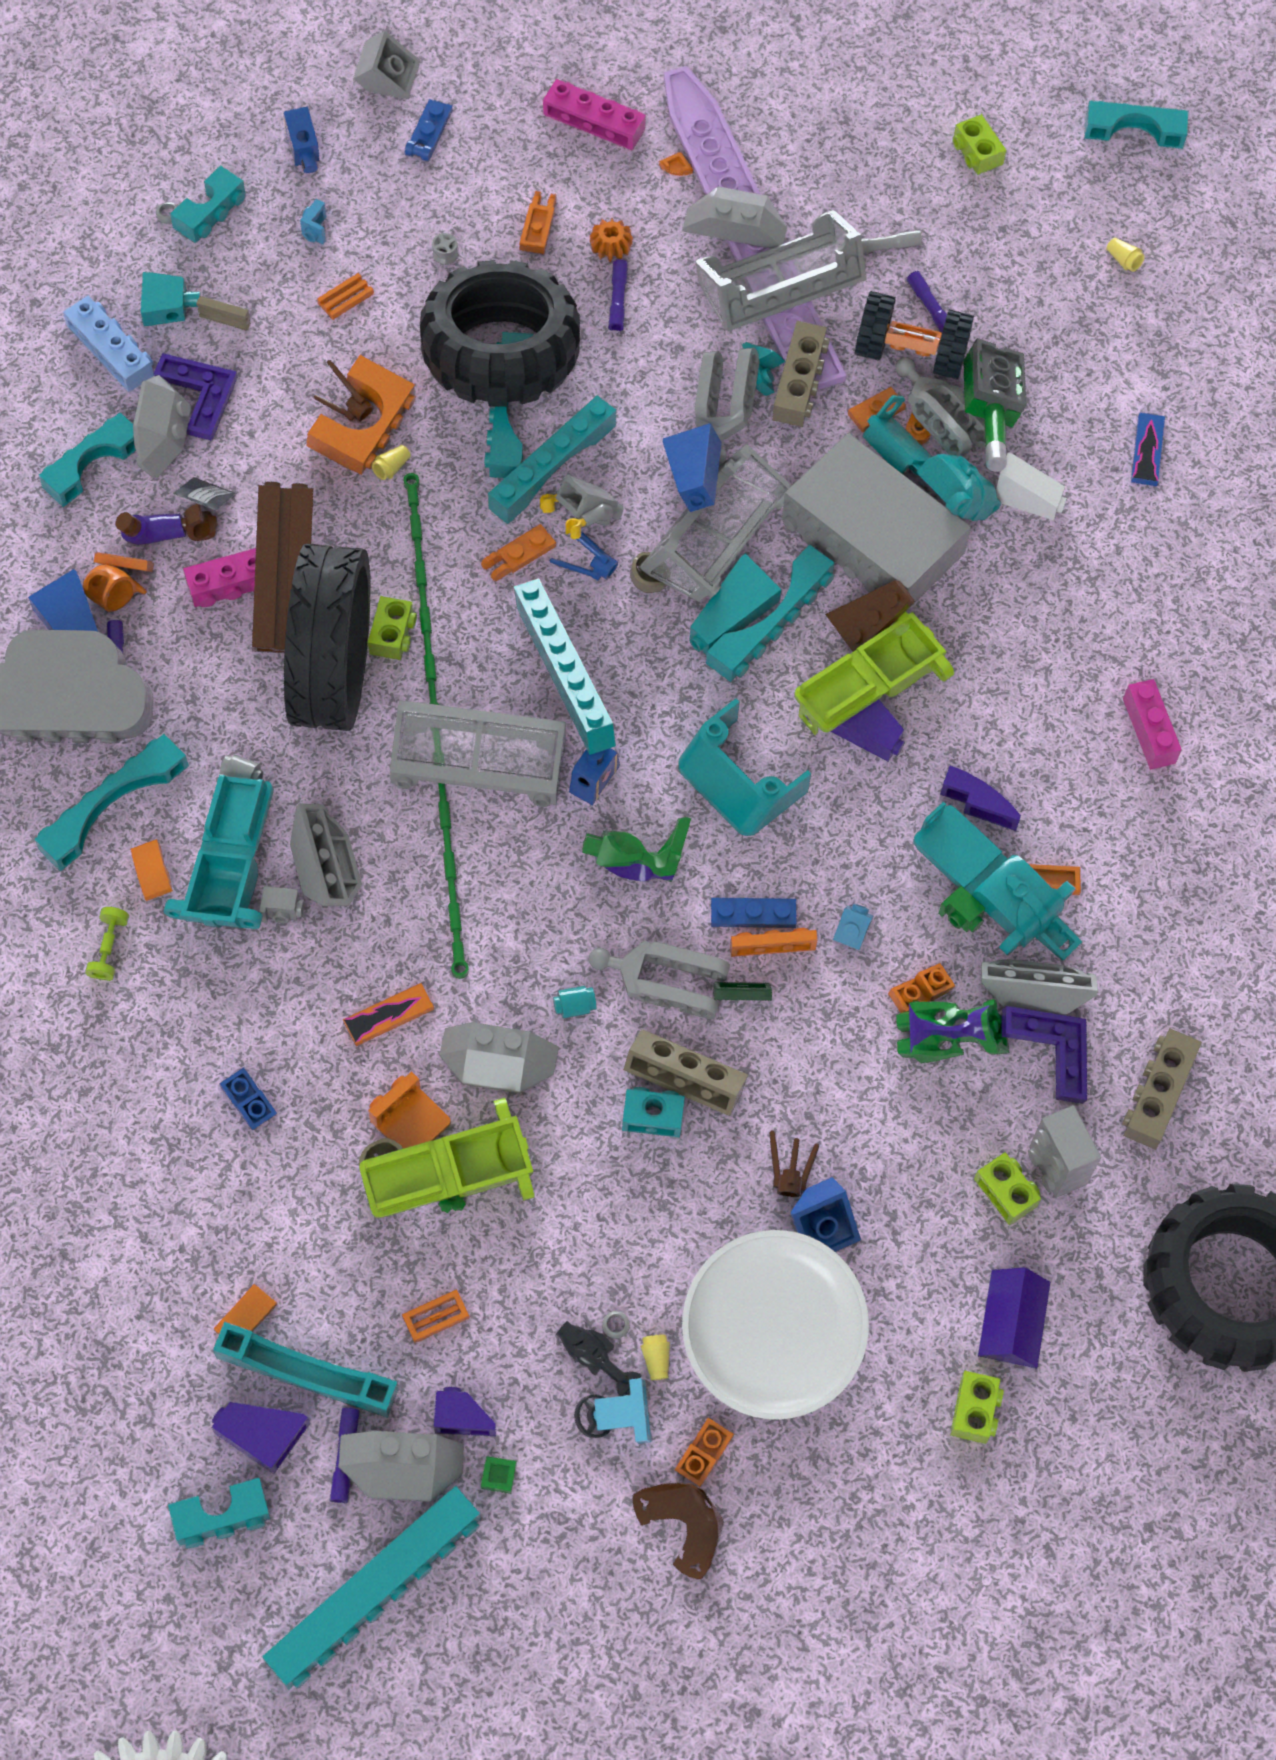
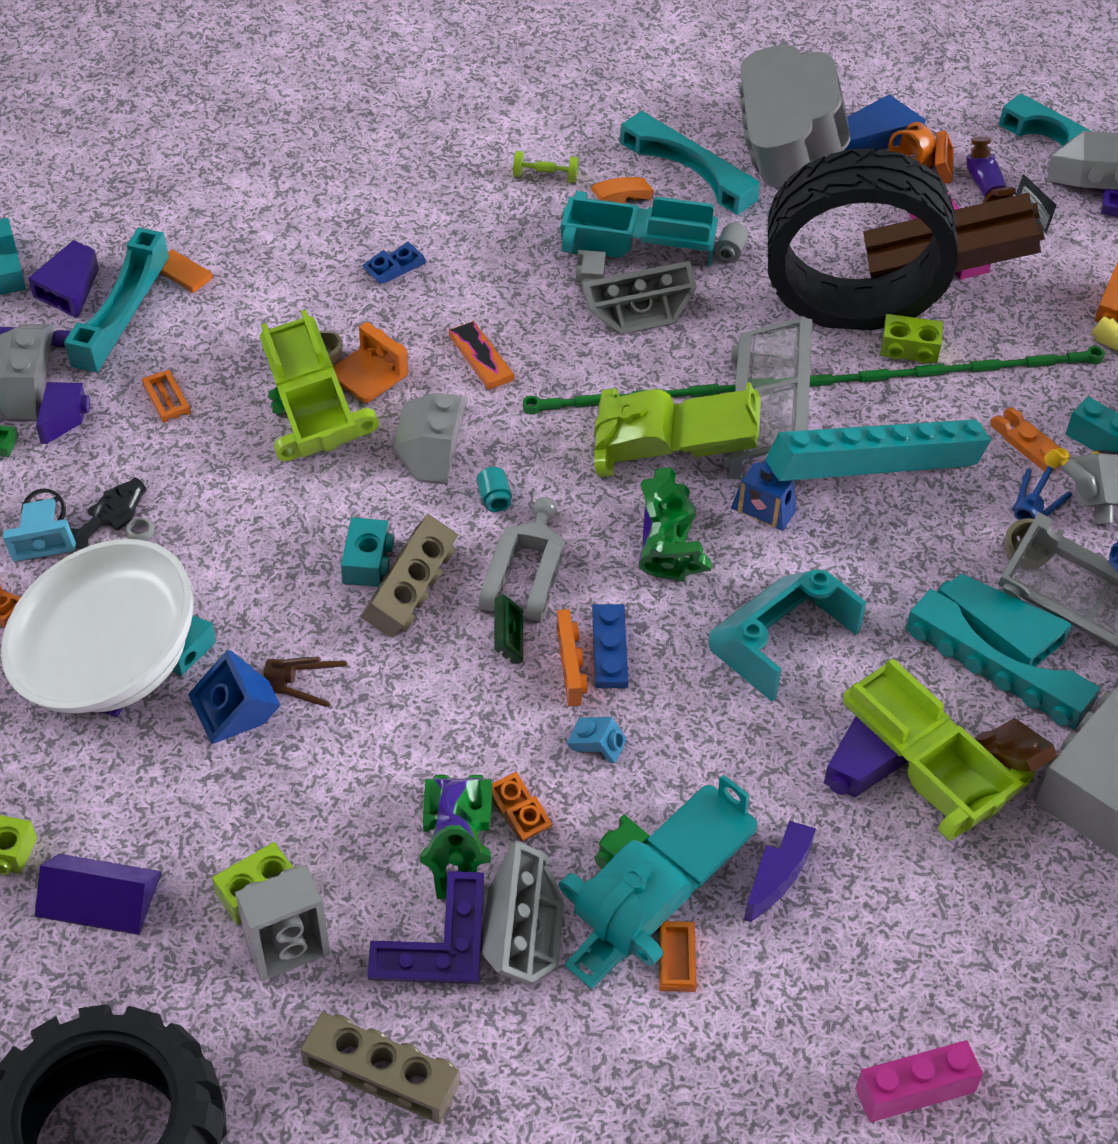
camera: 90 degrees right, 15 degrees down
(518, 836) = (653, 426): none -> lime piece

